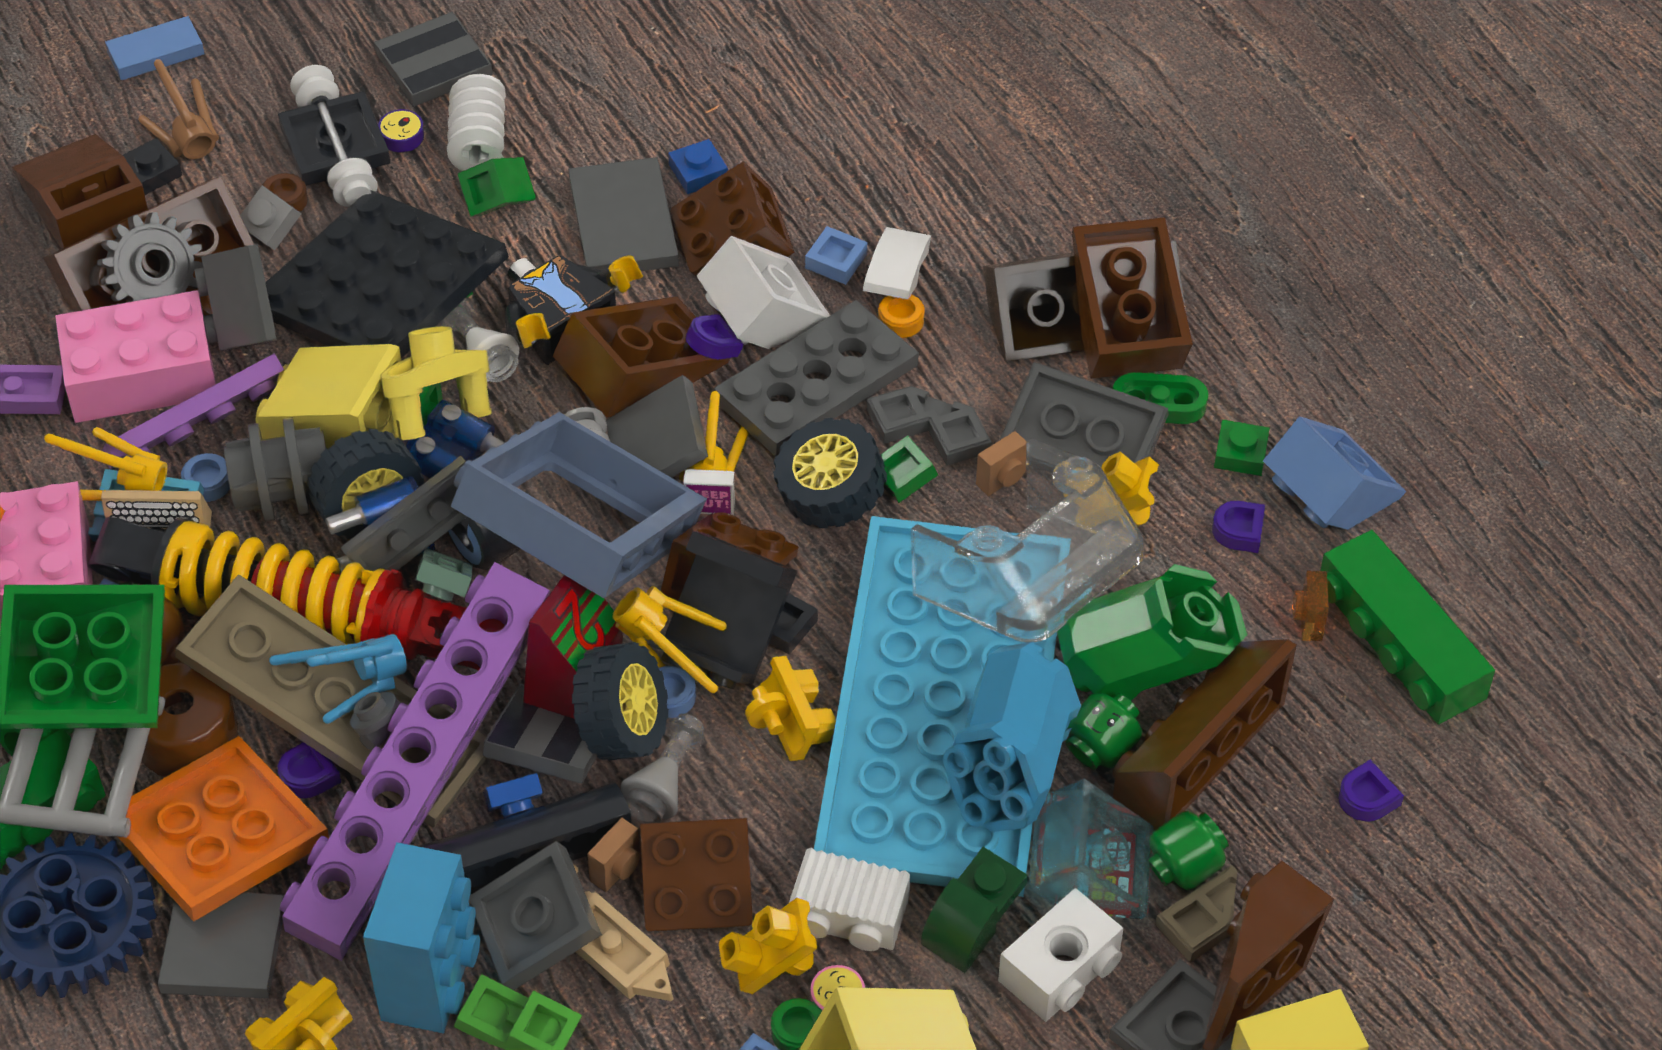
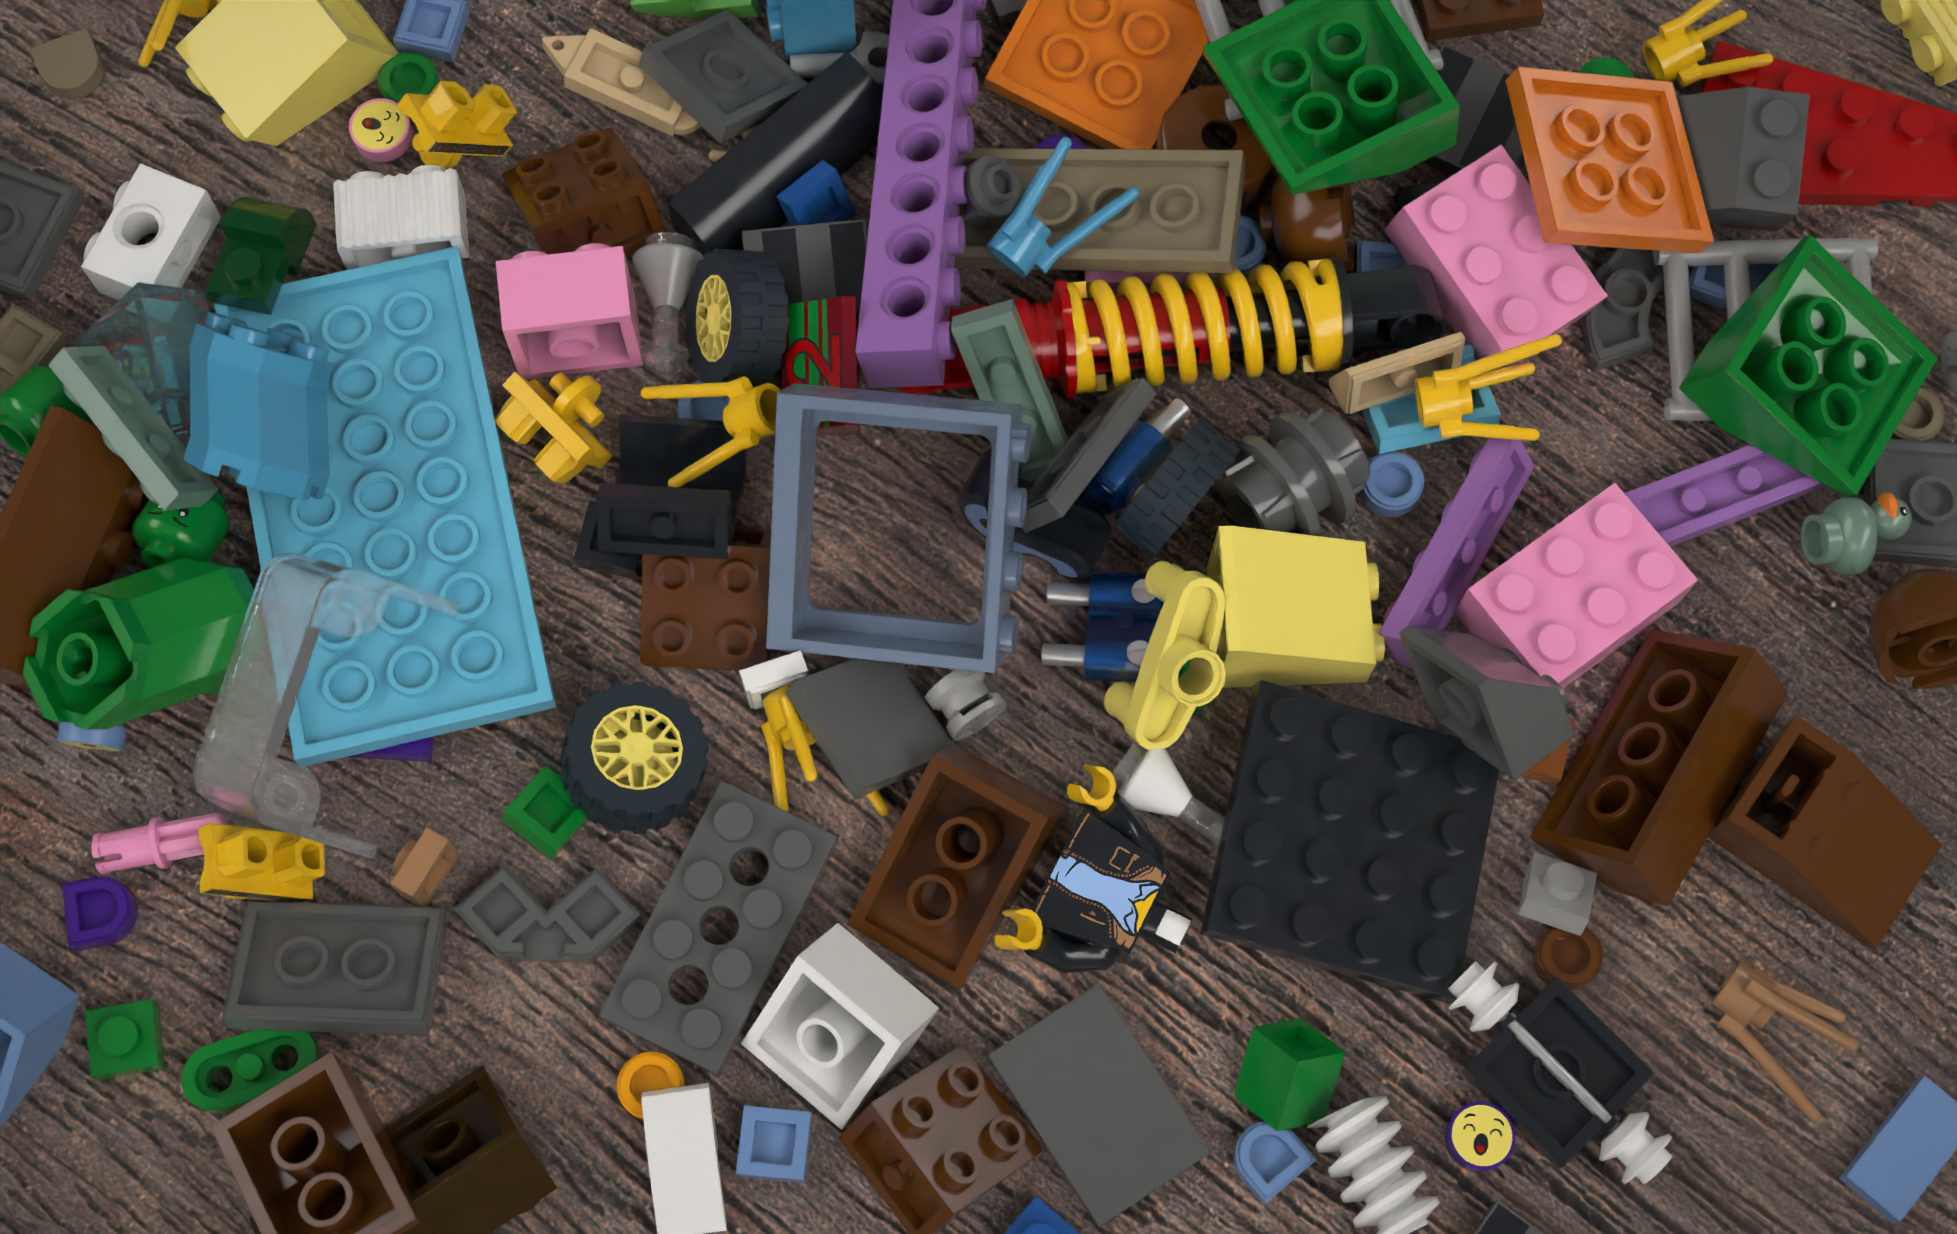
camera: 155 degrees right, 20 degrees up
(128, 249) = (1638, 709): gear -> none
(153, 165) = (1771, 930): black plate -> none
(539, 159) = (1269, 1159): none -> medium blue tile
(614, 855) = (671, 171): medium nougat plate -> none
(713, 338) = (881, 922): dark purple tile -> none
(744, 756) = (569, 311): none -> bright pink brick
(1115, 762) = (131, 427): none -> sand green plate
(1185, 542) = (151, 844): none -> bright pink axle

